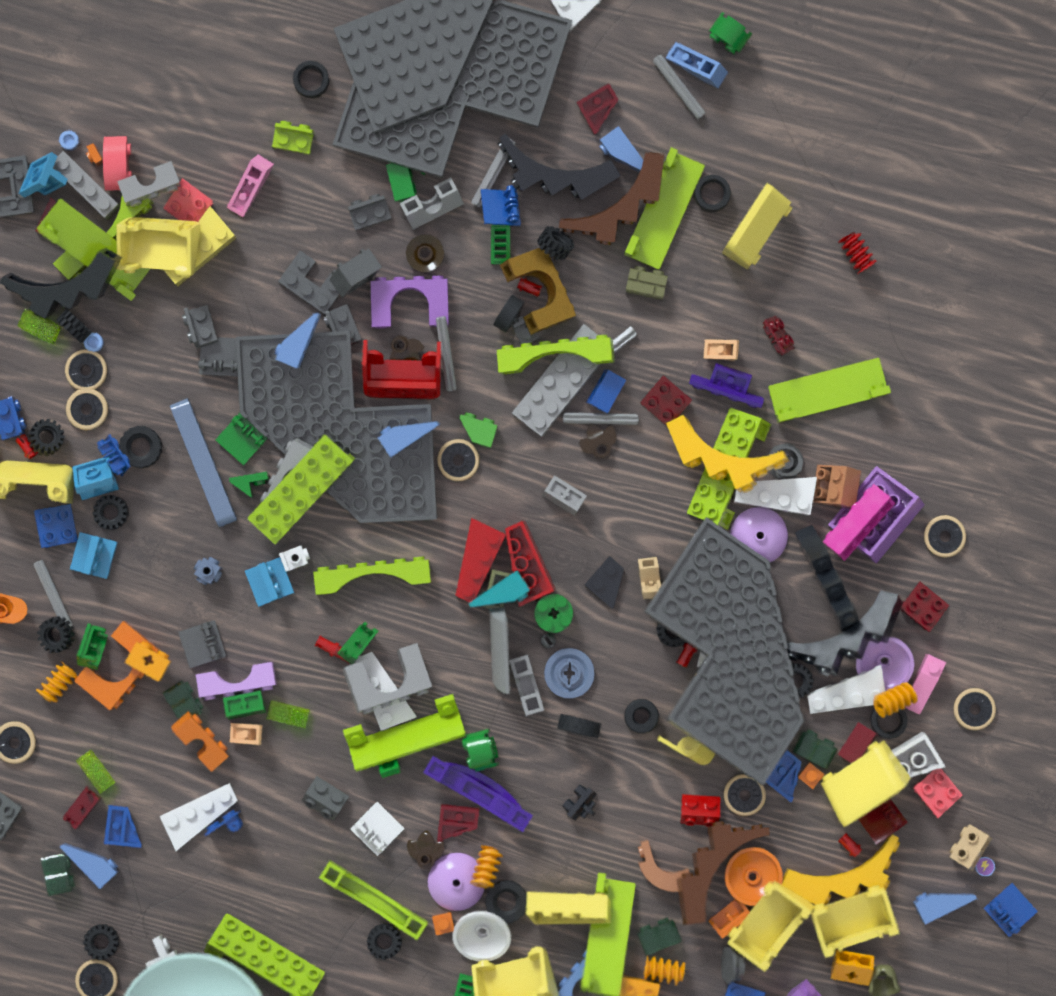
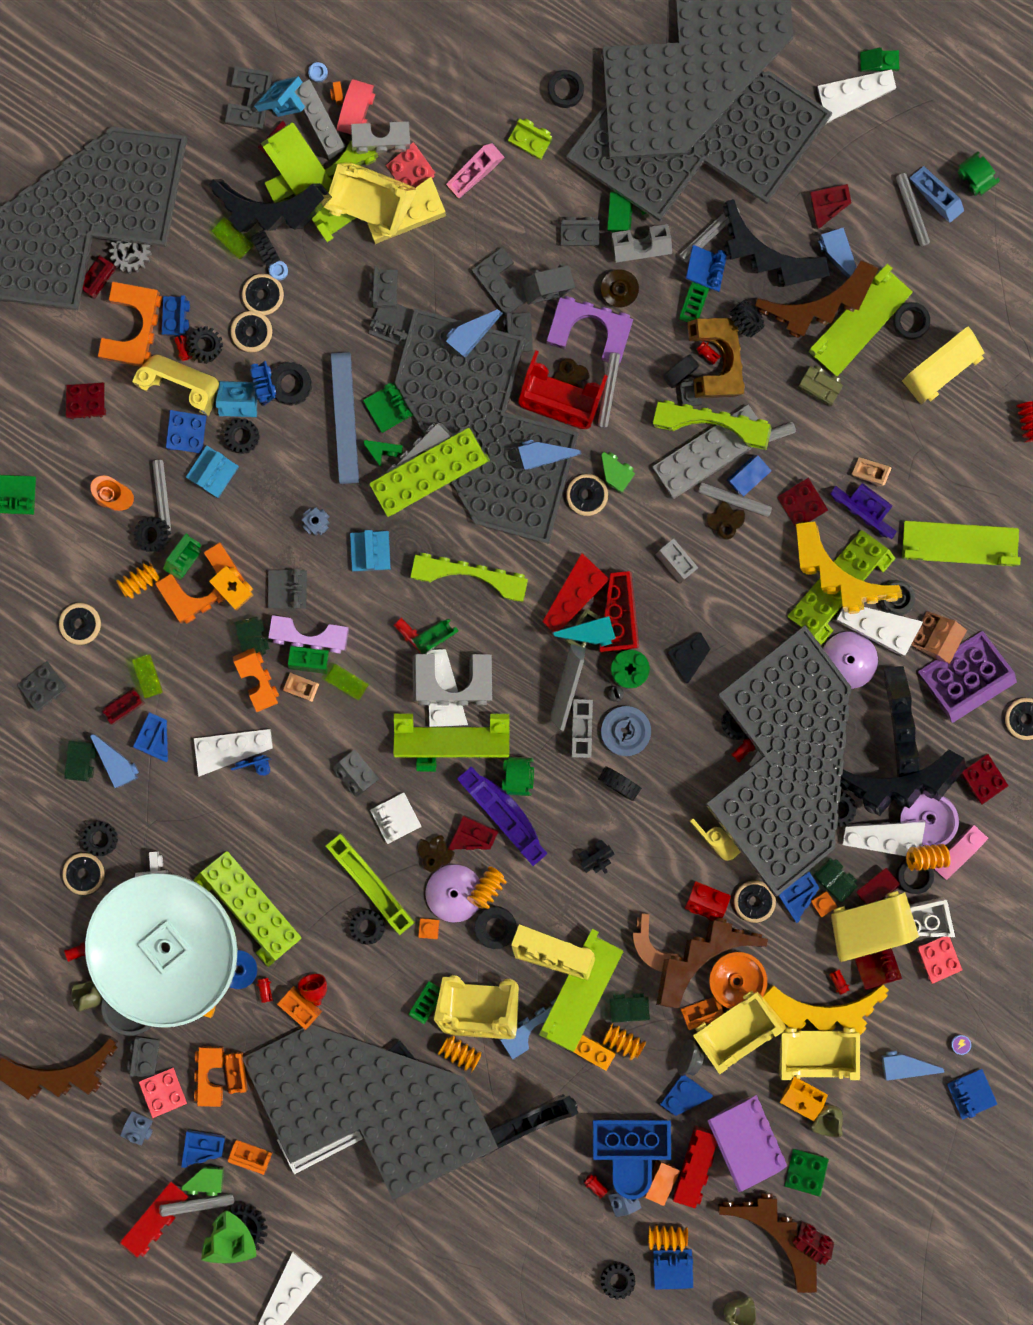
camera: 25 degrees right, 0 degrees up
(287, 561) = (395, 541): white brick -> none
(480, 943) = (459, 960): white dish -> none
(641, 704) = (681, 782): black tyre -> none
(649, 576) = (732, 664): tan brick -> none
(776, 327) = (930, 467): dark red hinge -> none
(858, 522) = (949, 677): dark pink brick -> none
(962, 709) = (1011, 898): black wheel -> none
(970, 847) = (953, 1021): tan brick -> none

